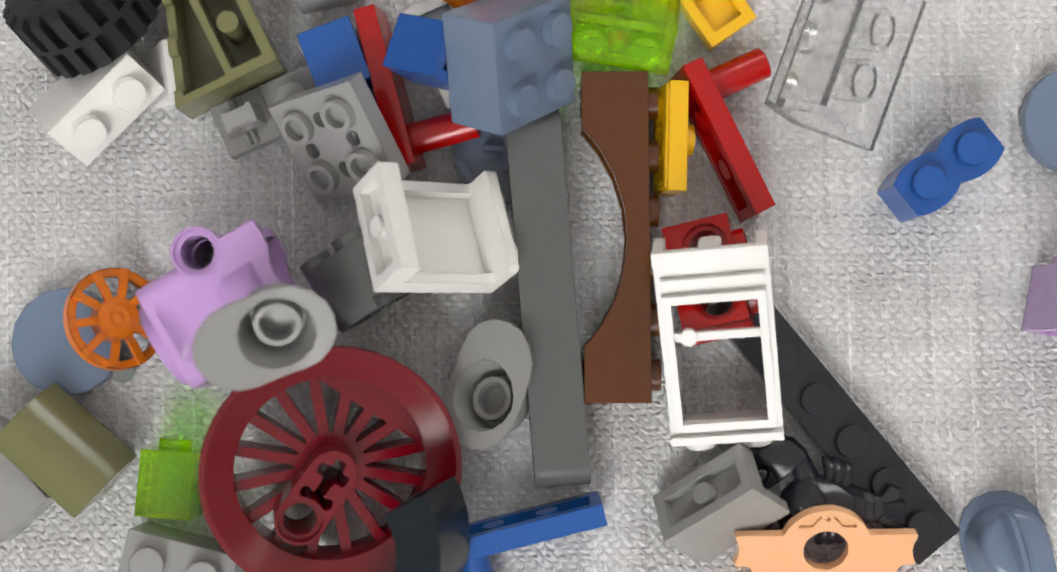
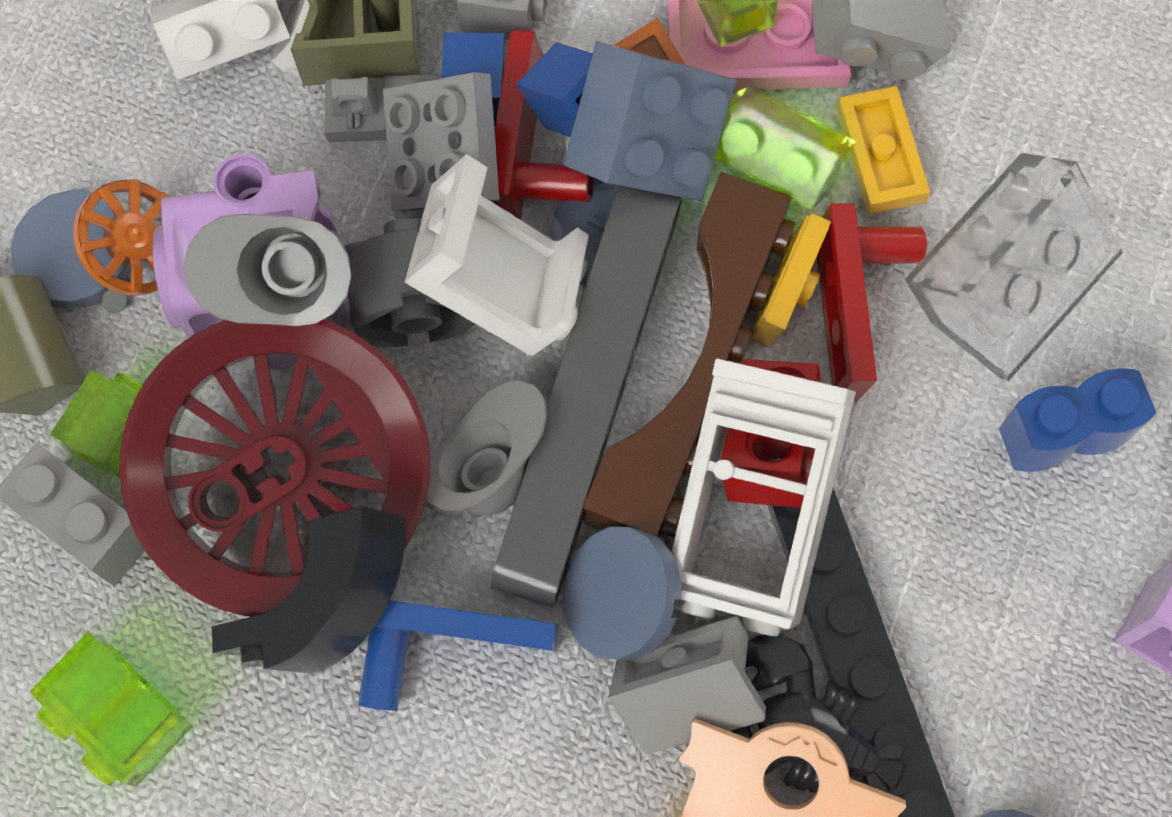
camera: 25 degrees right, 15 degrees down
(641, 456) = (621, 593): none -> sand blue tile

